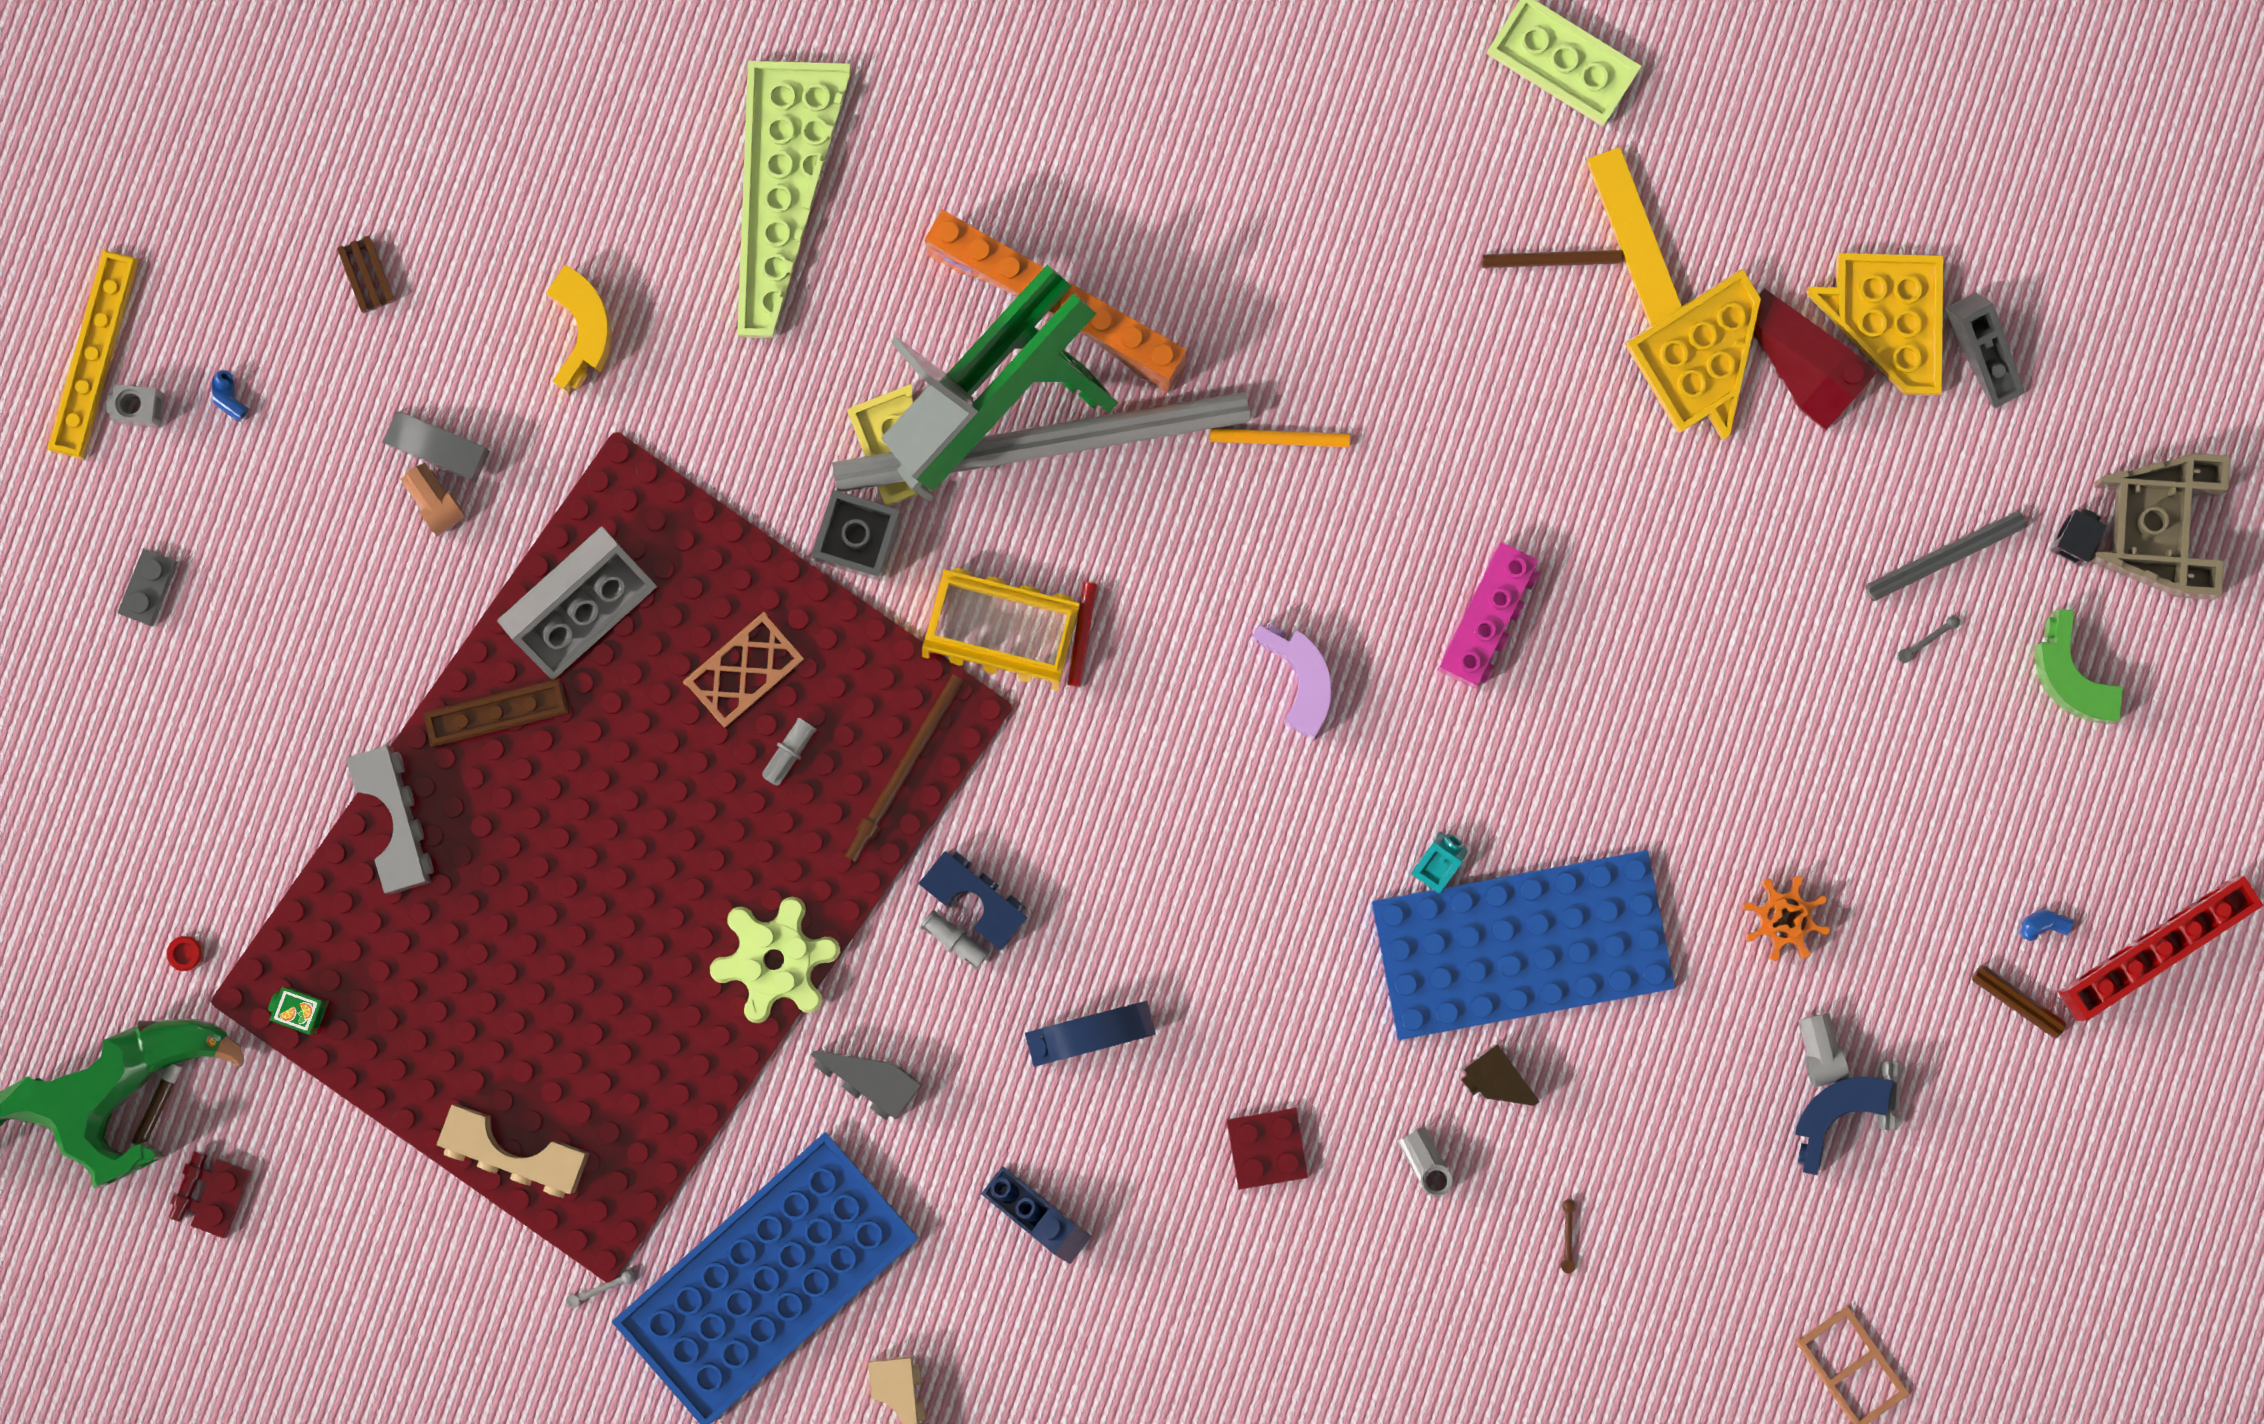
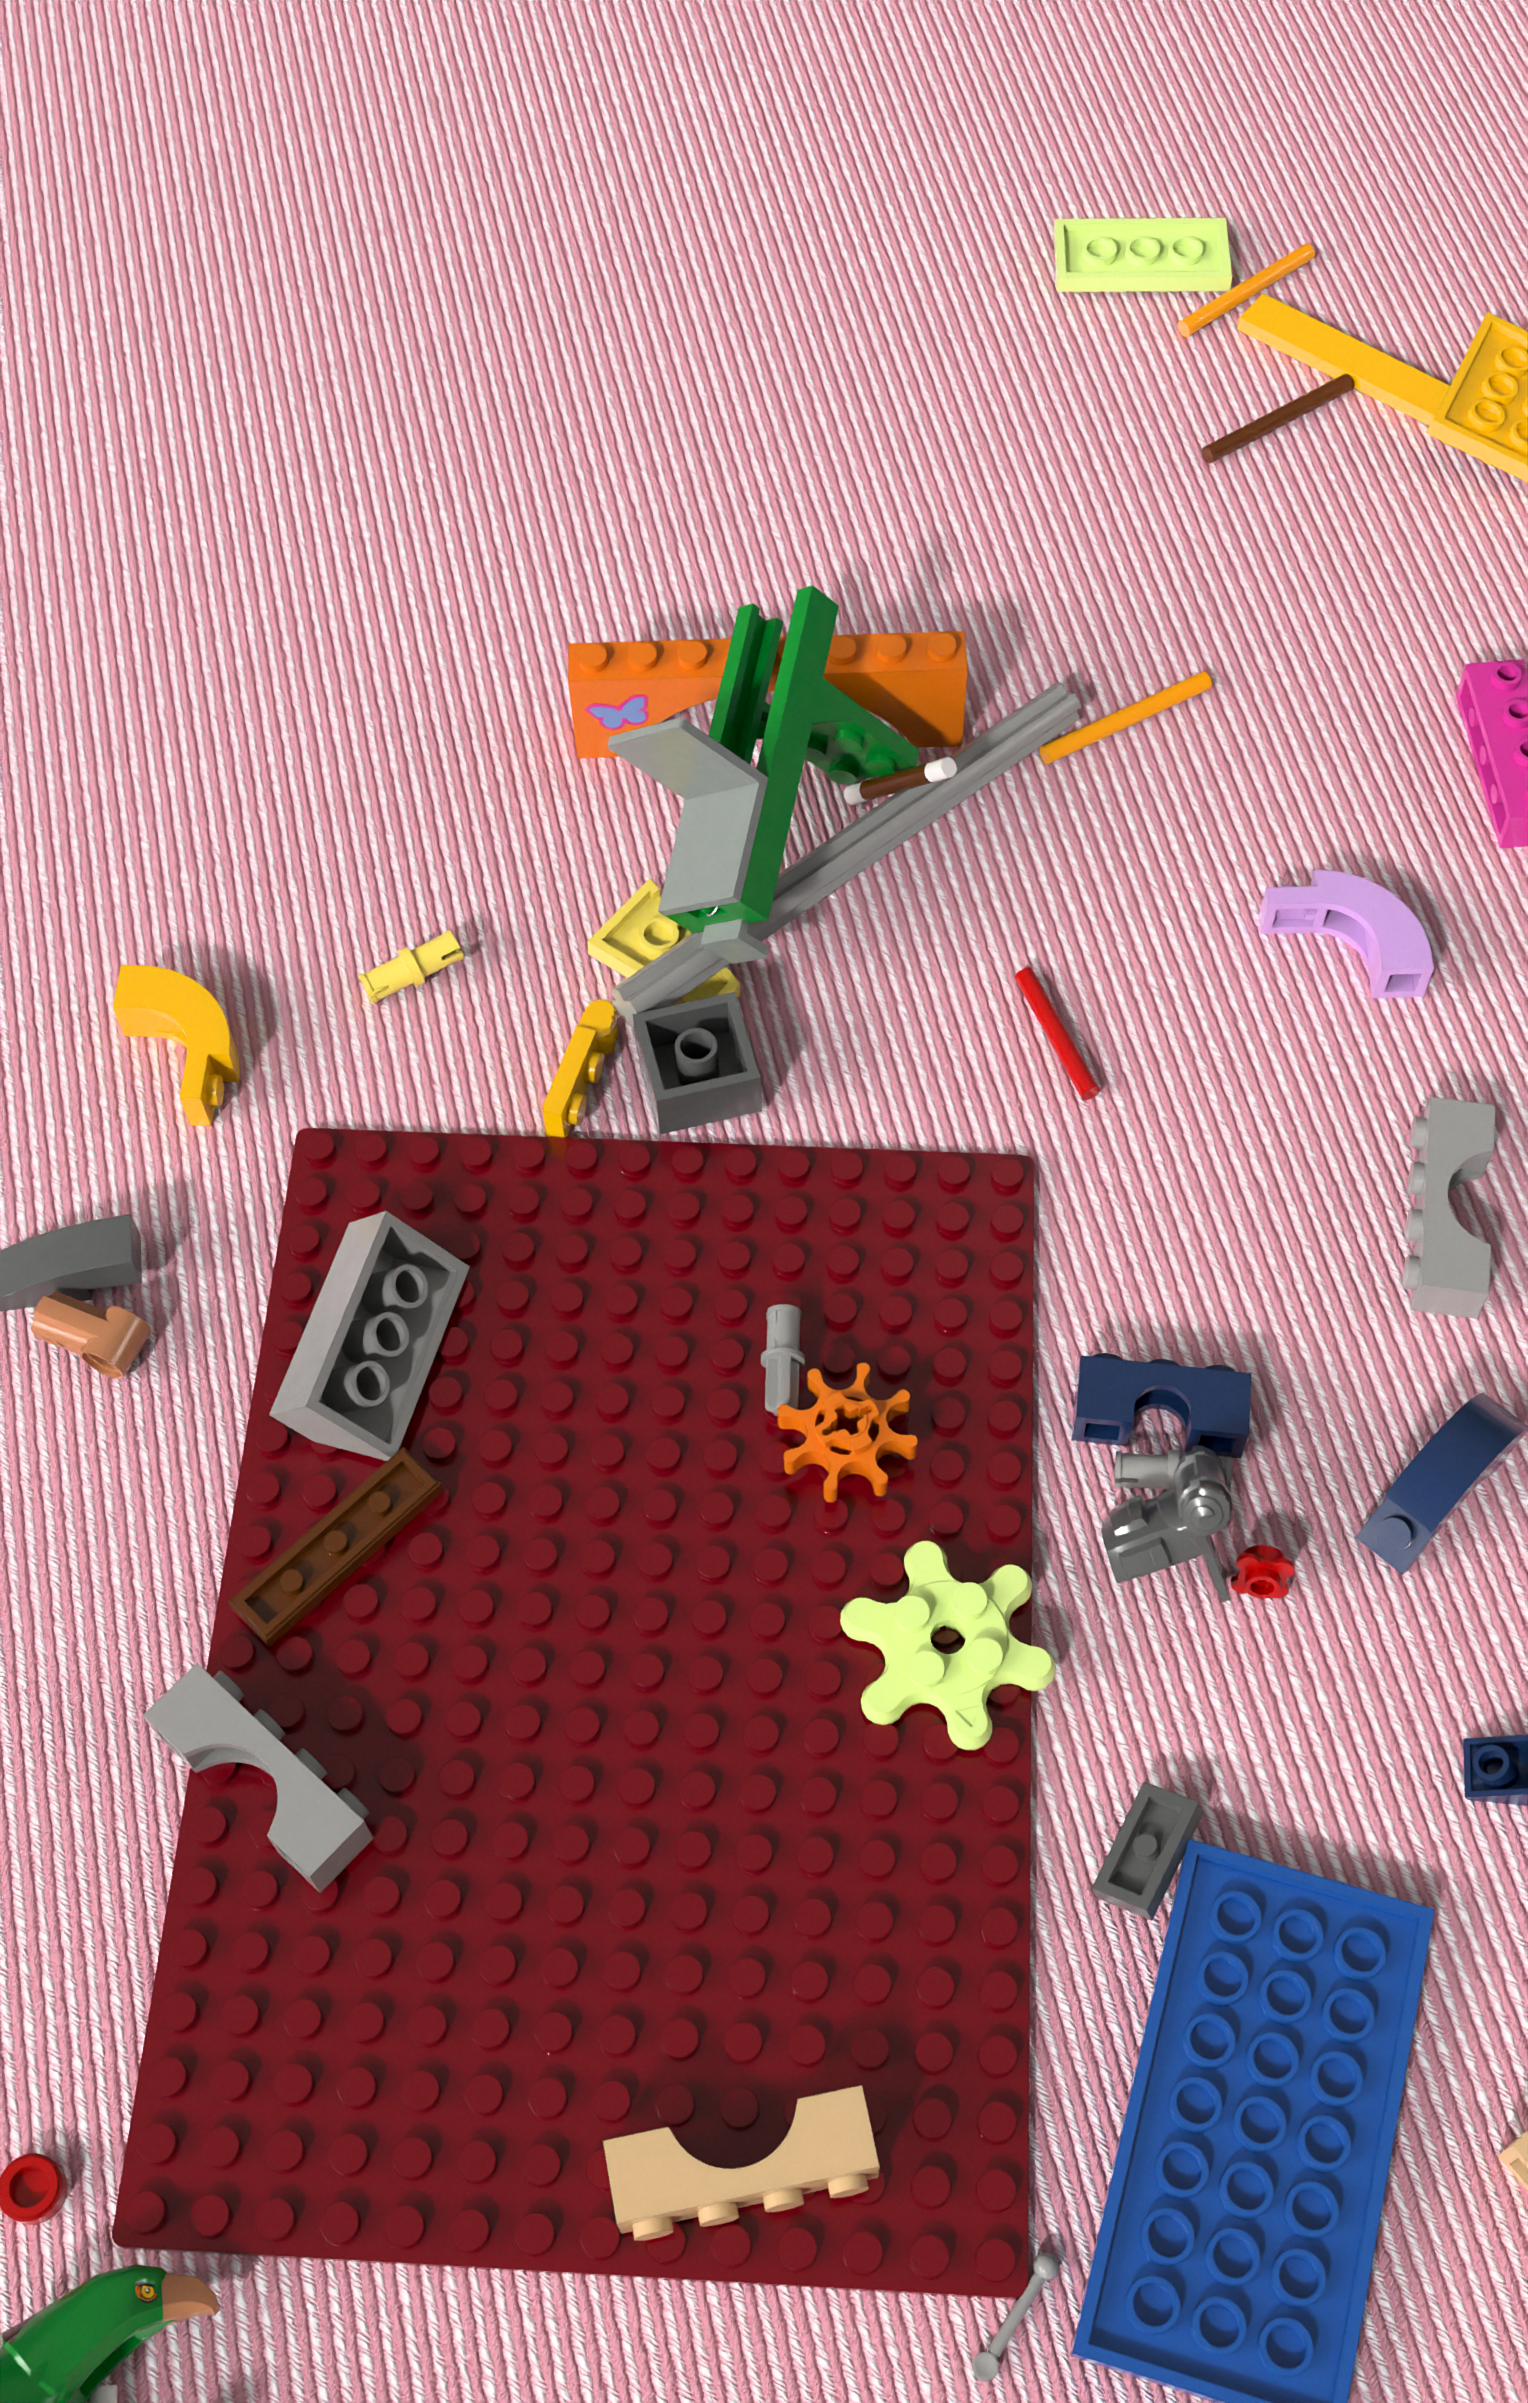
camera: 30 degrees left, 25 degrees down
(297, 1010) = (265, 2152): green brick -> none
(737, 359) = (411, 967): none -> light yellow pin
(742, 640) = (678, 1335): nougat window -> none
(786, 144) = (333, 736): yellowish green wing -> none
(794, 491) = (580, 1066): none -> yellow hinge
(794, 833) = (839, 1450): none -> orange gear
(802, 1124) = (1147, 1850): none -> dark grey plate
(869, 827) = (956, 1388): reddish brown bar -> none
(879, 1081) = (1208, 1721): dark grey slope -> none
(924, 974) = (1176, 1525): none -> dark grey piece
(960, 1022) = (1262, 1572): none -> red plate
(1001, 626) = (953, 1062): window -> none
(1095, 421) = (900, 781): none -> bar
(1186, 917) = (1448, 1263): none -> light grey arch
(1615, 132) = (1246, 290): none -> light orange bar

